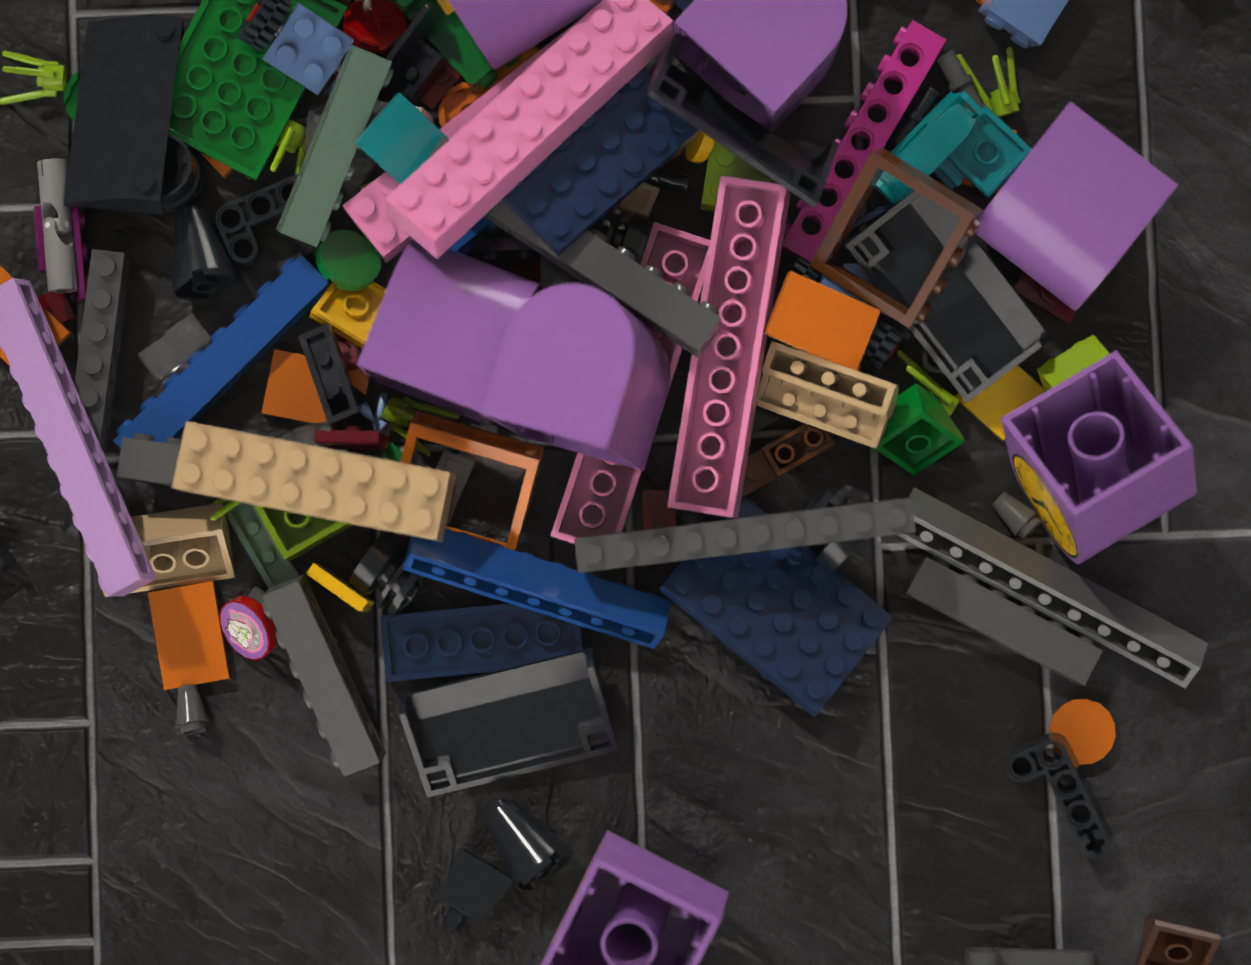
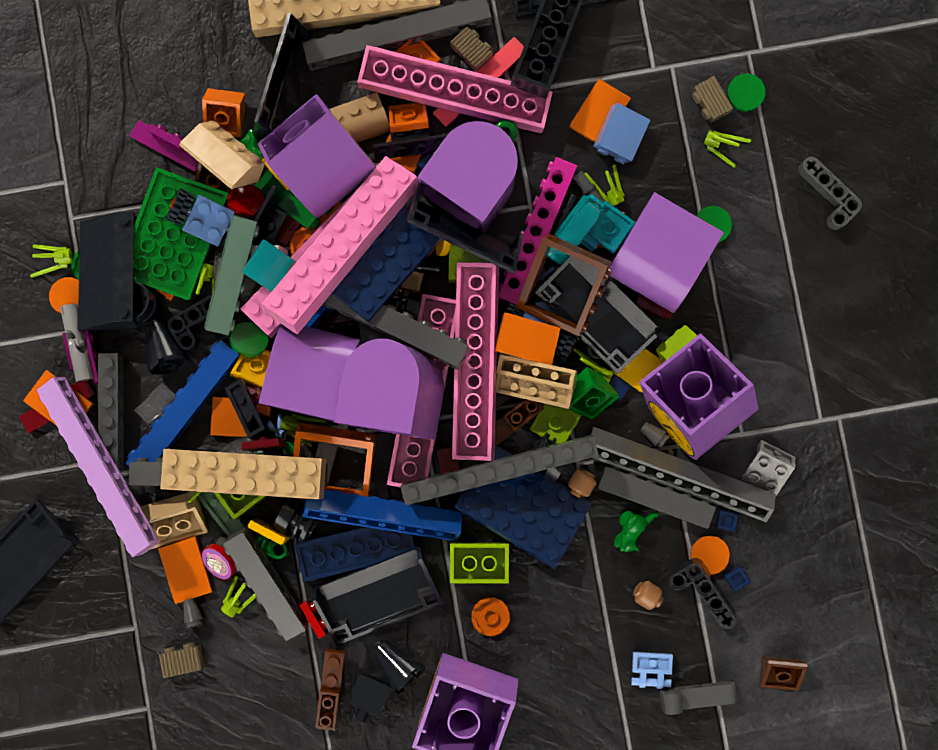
camera: 10 degrees left, 0 degrees up
(46, 138) = (64, 292): none -> orange tile
(163, 786) = (182, 660): none -> dark tan brick
(259, 705) = (231, 605): none -> lime plant
(337, 611) = (269, 547): none -> green piece
(391, 733) = (311, 614): none -> red plate
(407, 869) = (330, 689): none -> reddish brown slope
(688, 690) = (479, 562): none -> lime brick
(695, 784) = (490, 616): none -> orange tile
(852, 469) = (556, 421): none -> lime tile
(881, 580) = (582, 483): none -> medium nougat head
(957, 665) = (632, 526): none -> green animal
(958, 901) = (651, 663): none -> light blue plate
(967, 784) = (648, 595): none -> medium nougat head
(968, 426) = (619, 386): none -> dark blue tile
(1119, 677) = (727, 520): none -> dark blue tile
(1122, 779) = (737, 579): none -> dark blue tile
(1175, 162) = (718, 218): none -> green tile
(1186, 28) = (715, 138): none -> lime plant
(1203, 598) = (769, 468): none -> light grey bracket

